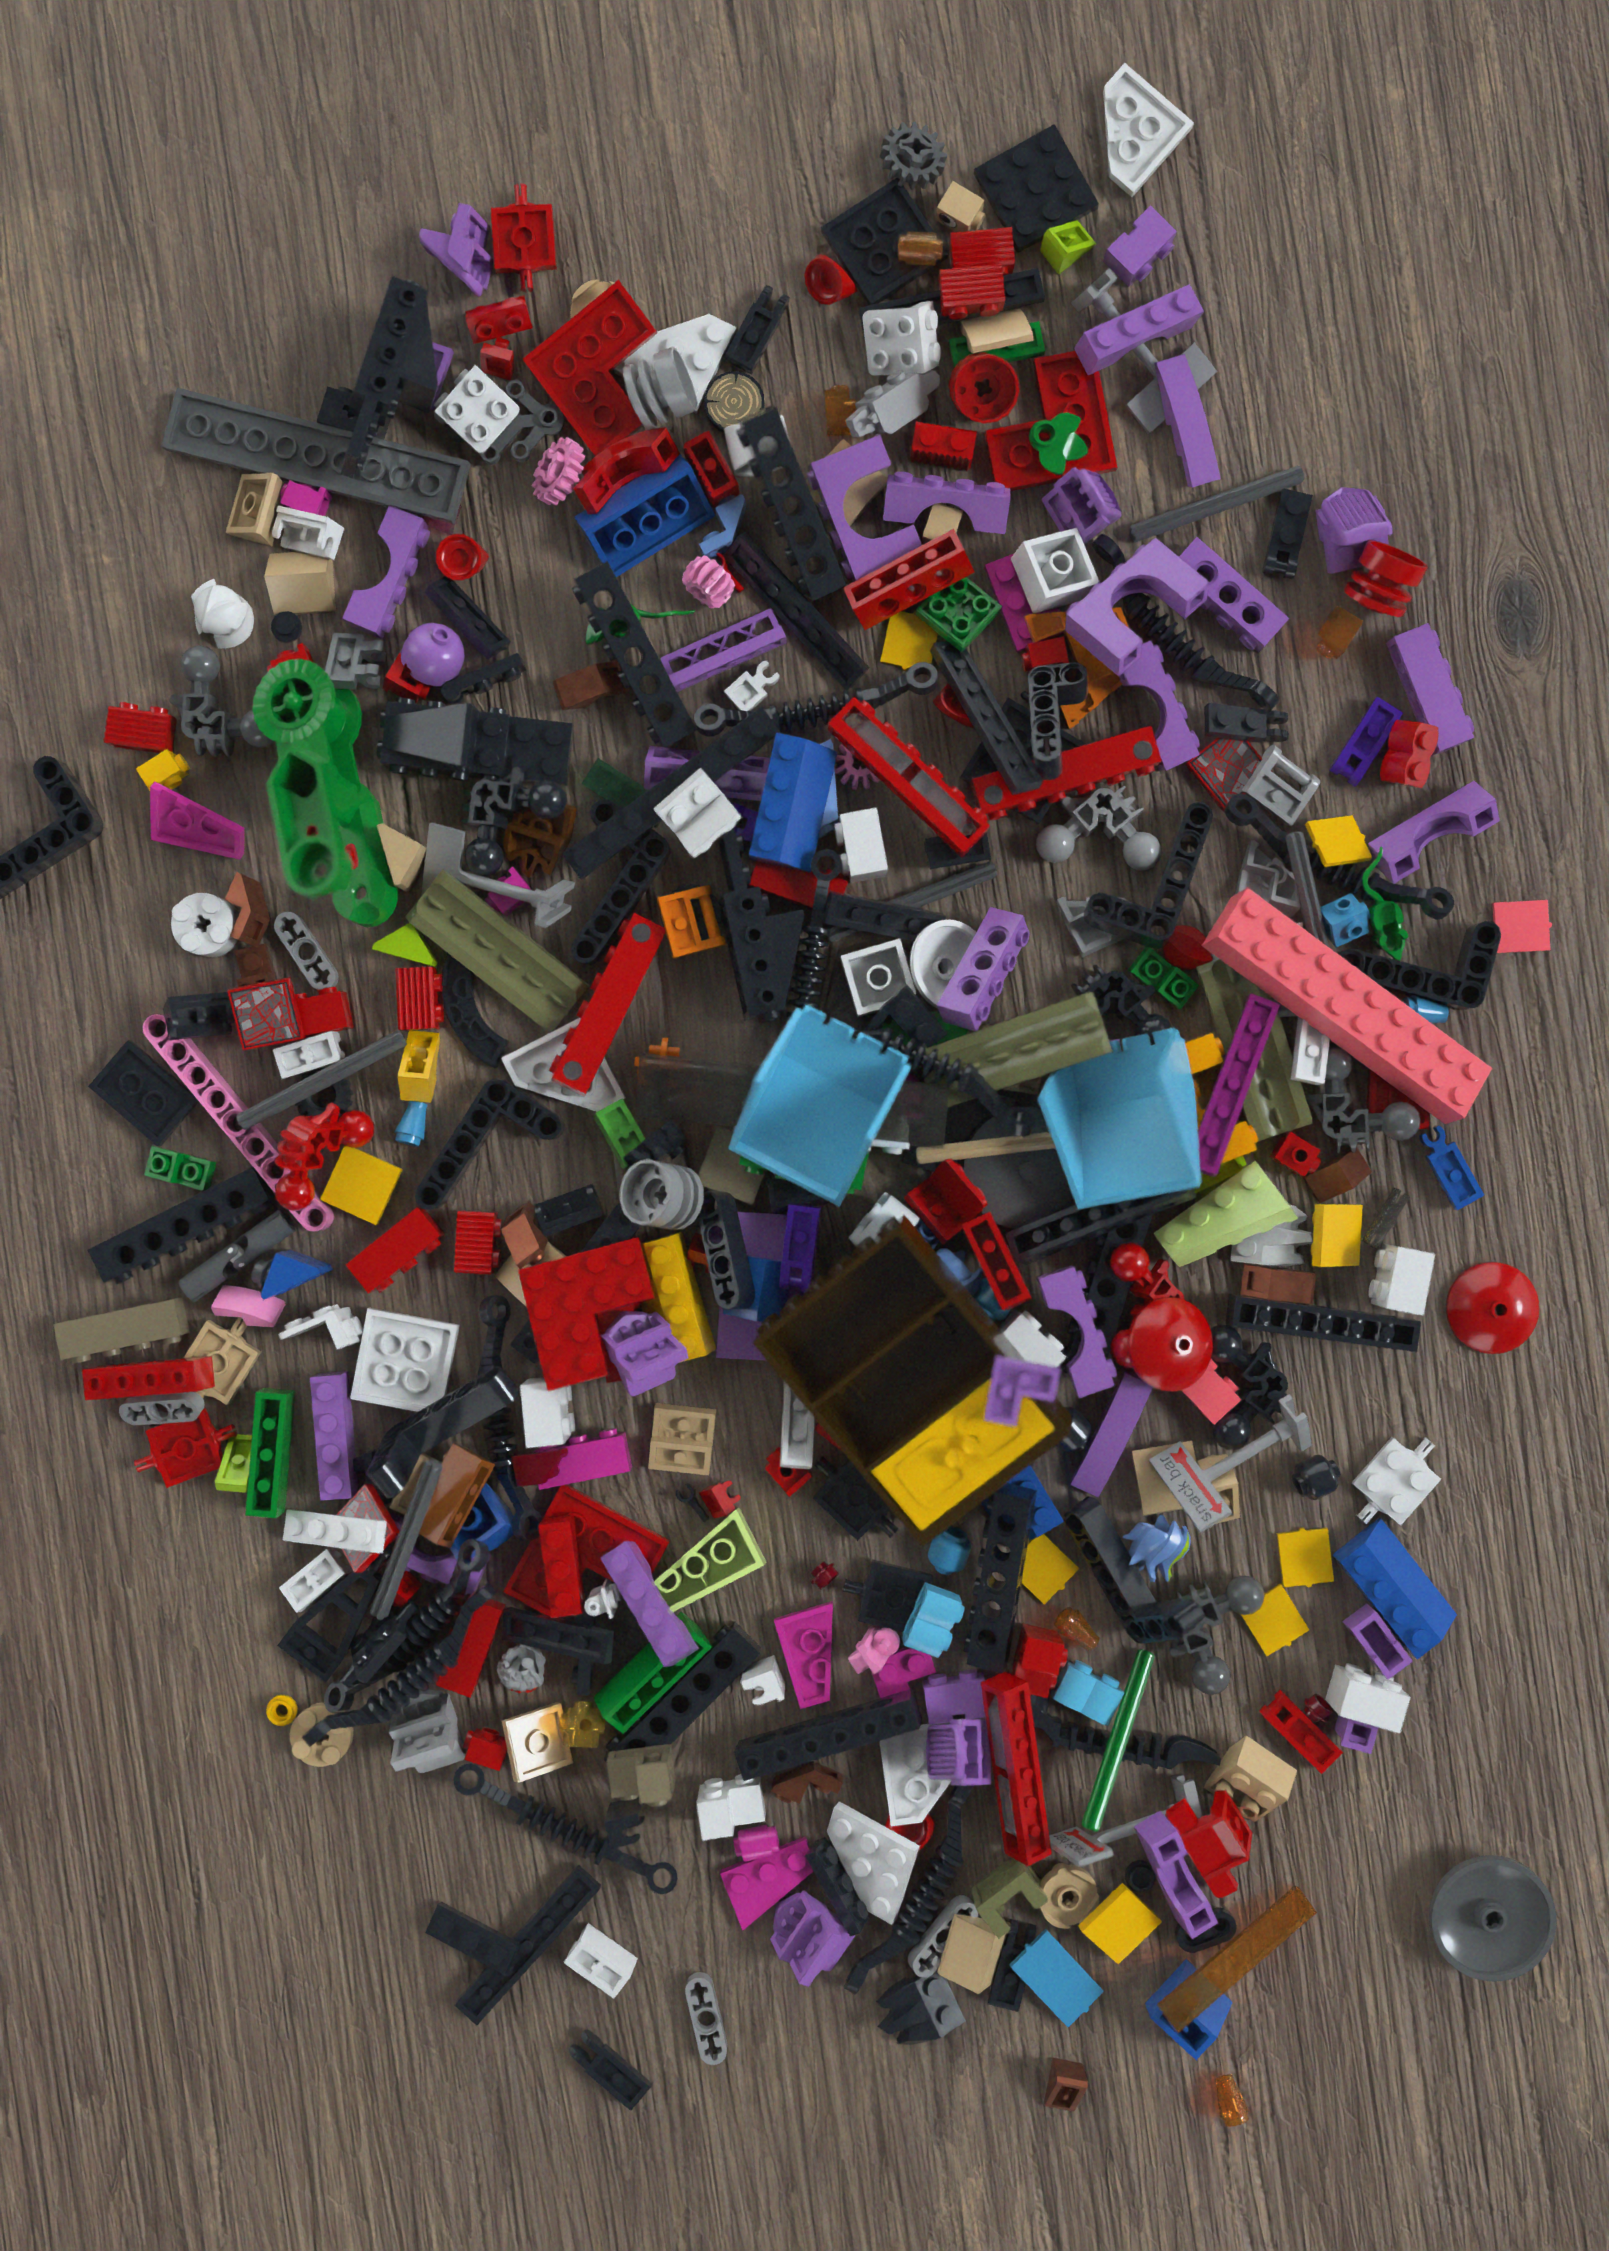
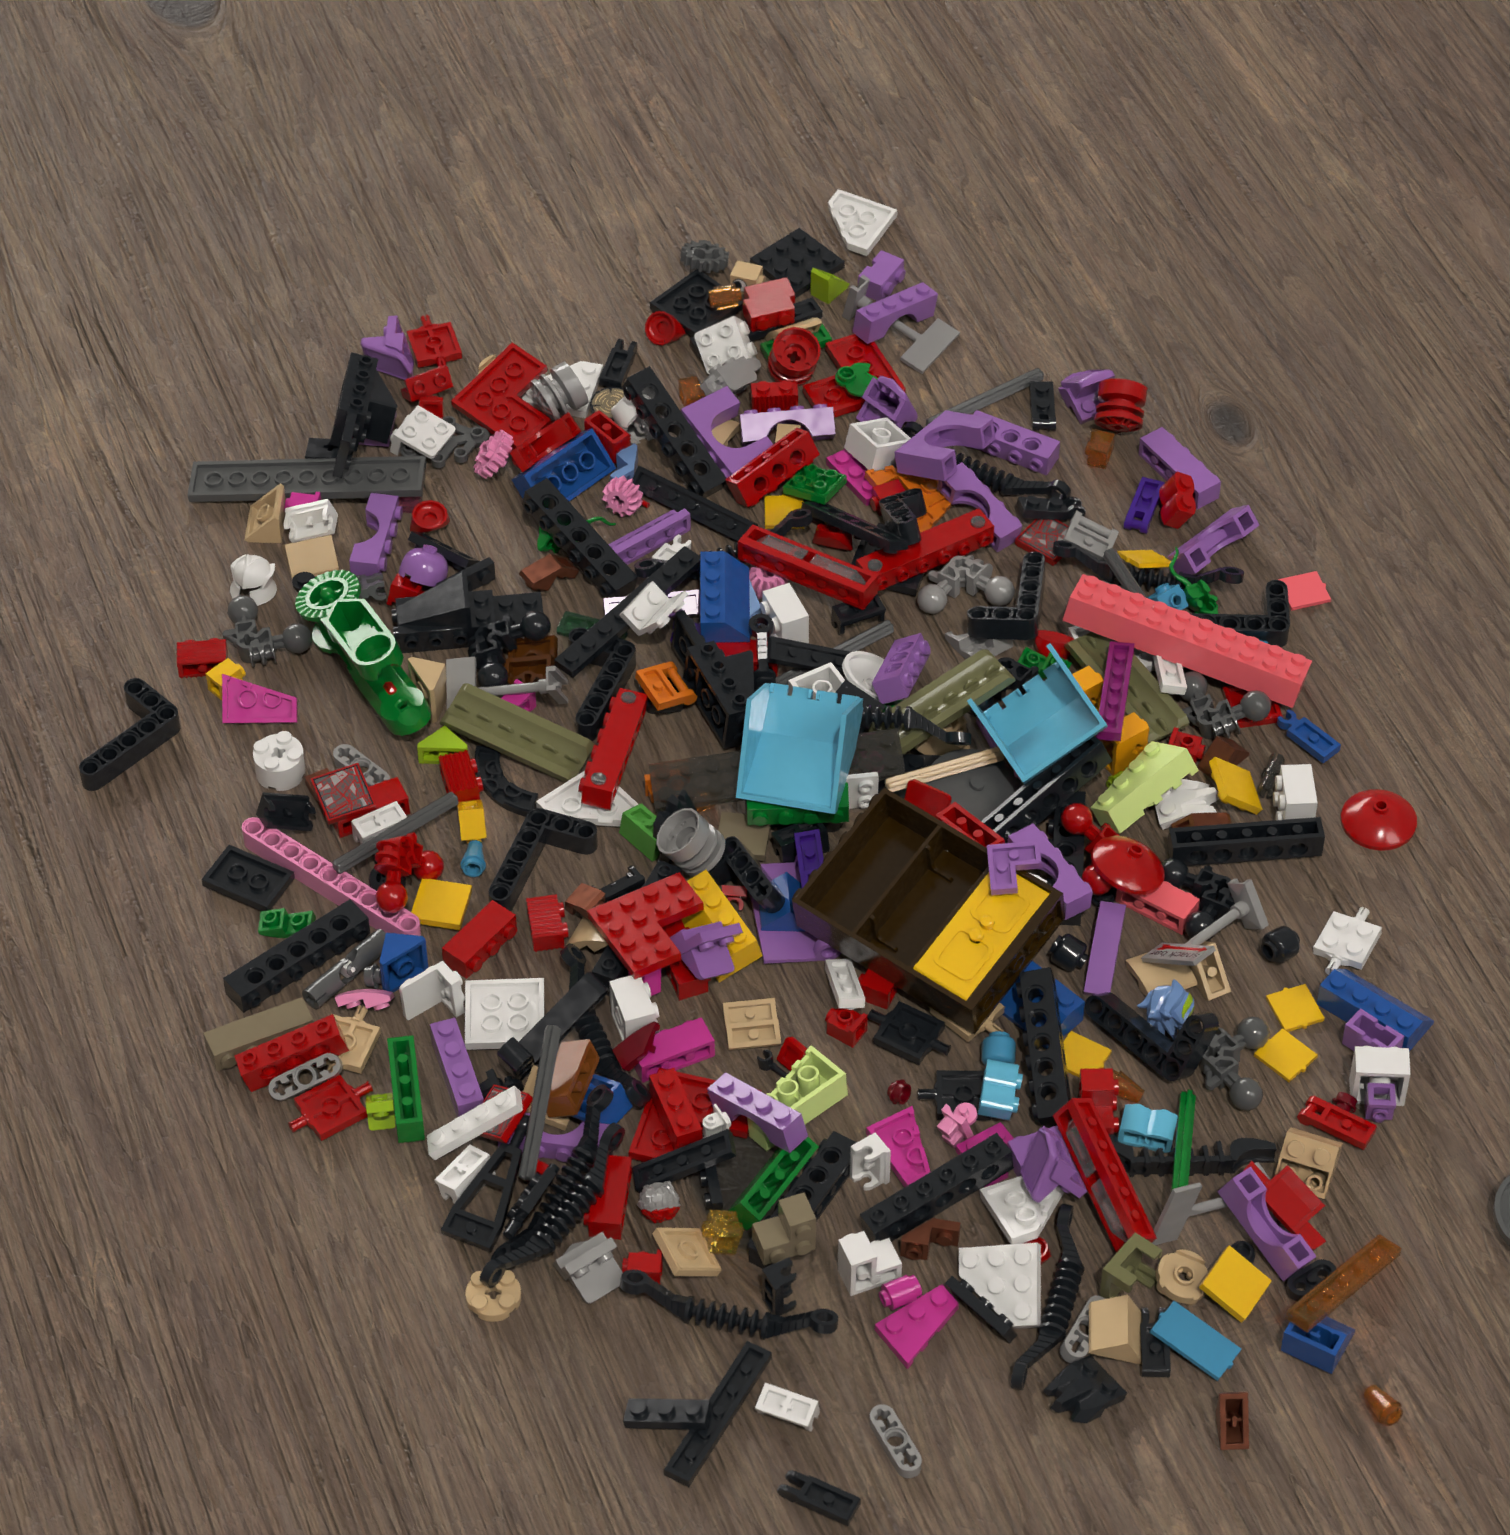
camera: 15 degrees left, 40 degrees down
(254, 914) = (313, 748): copper slope -> none
(278, 1718) = (454, 1275): yellow plate -> none
(808, 1936) = (970, 1347): medium lavender piece -> none
(1187, 419) = (948, 356): medium lavender slope -> none

